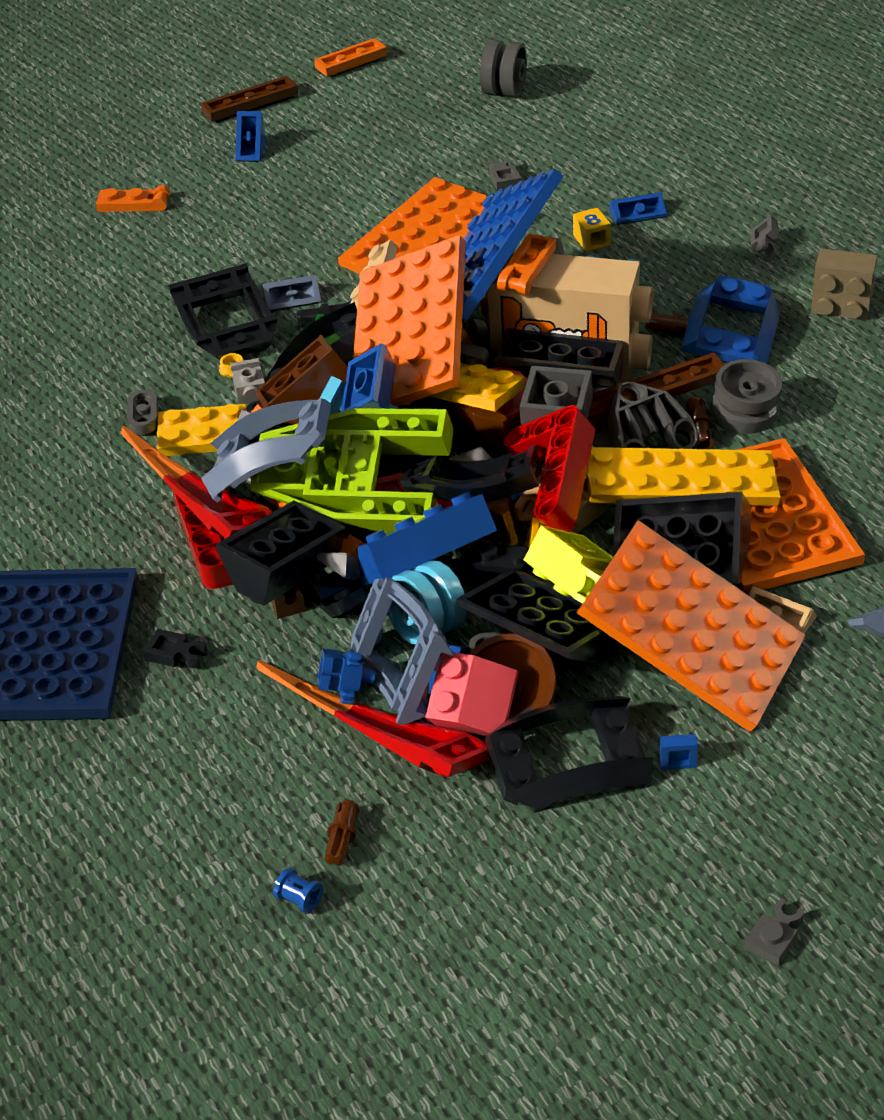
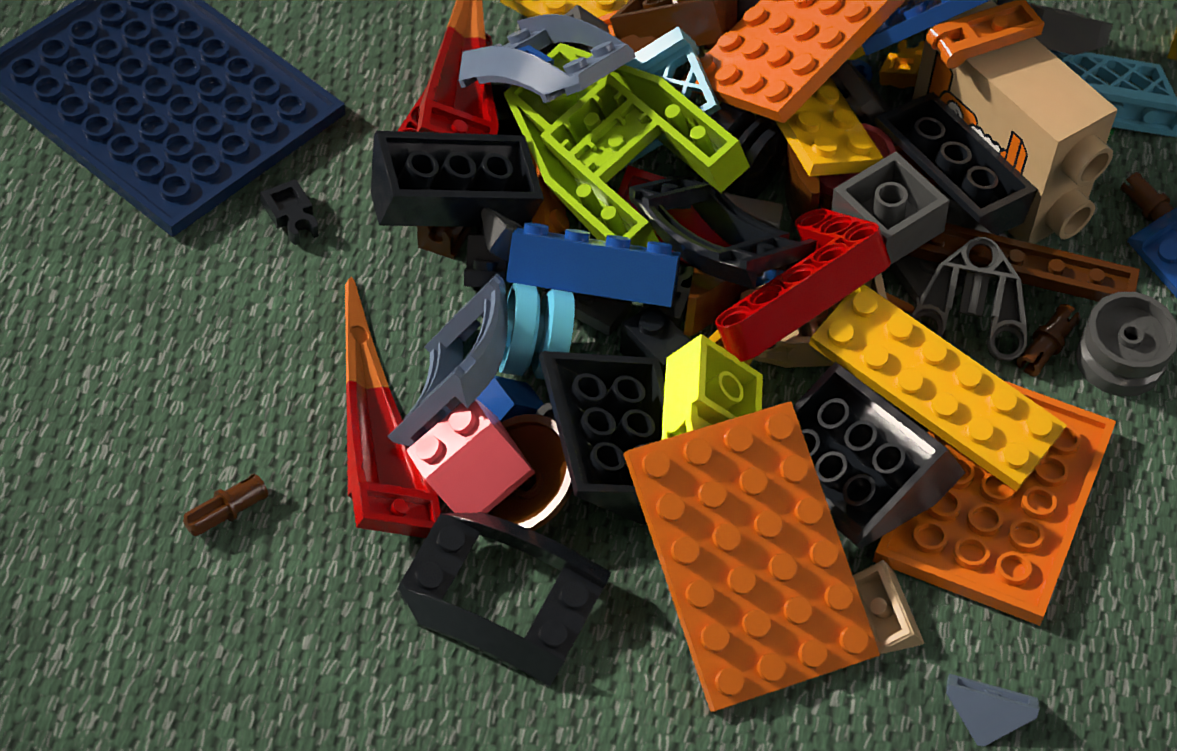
camera: 35 degrees right, 10 degrees up
(298, 890) = (128, 530): blue bush -> none
(343, 673) = (396, 346): blue piece -> none
(369, 380) = (706, 62): blue slope -> none
(678, 752) = (604, 675): blue plate -> none

